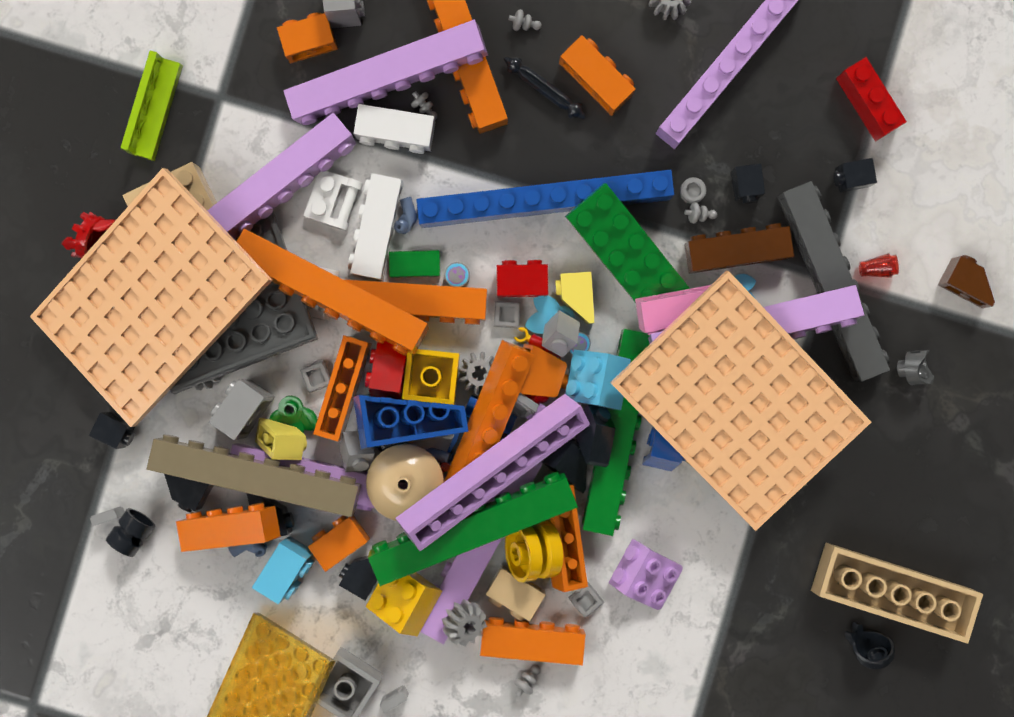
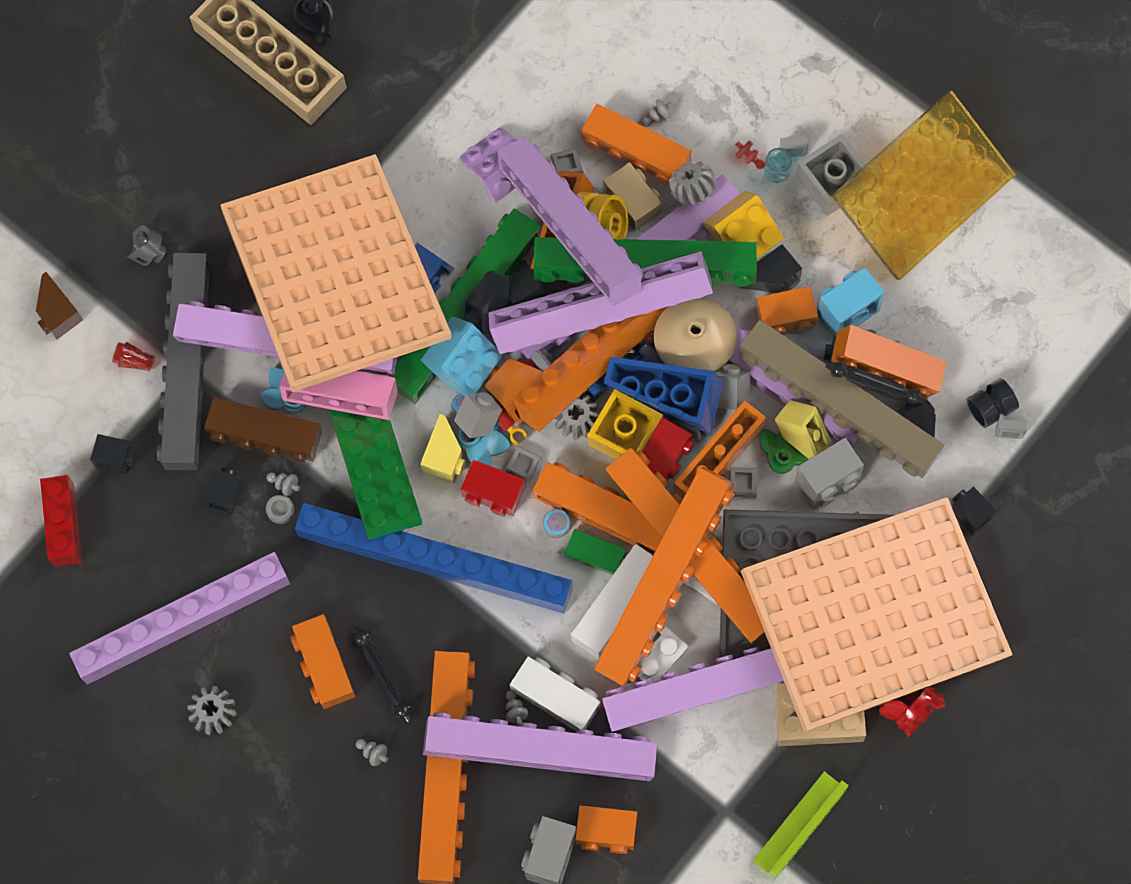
camera: 150 degrees left, 15 degrees down
(228, 501) = (875, 383): none -> black wheel
(336, 253) = (664, 576): none -> orange brick
(398, 679) = (778, 159): none -> clear light blue wheel
(408, 217) = (581, 601): sand blue arm -> none
(429, 674) = (751, 156): none -> clear red hair
(550, 533) = (570, 221): none -> lavender brick

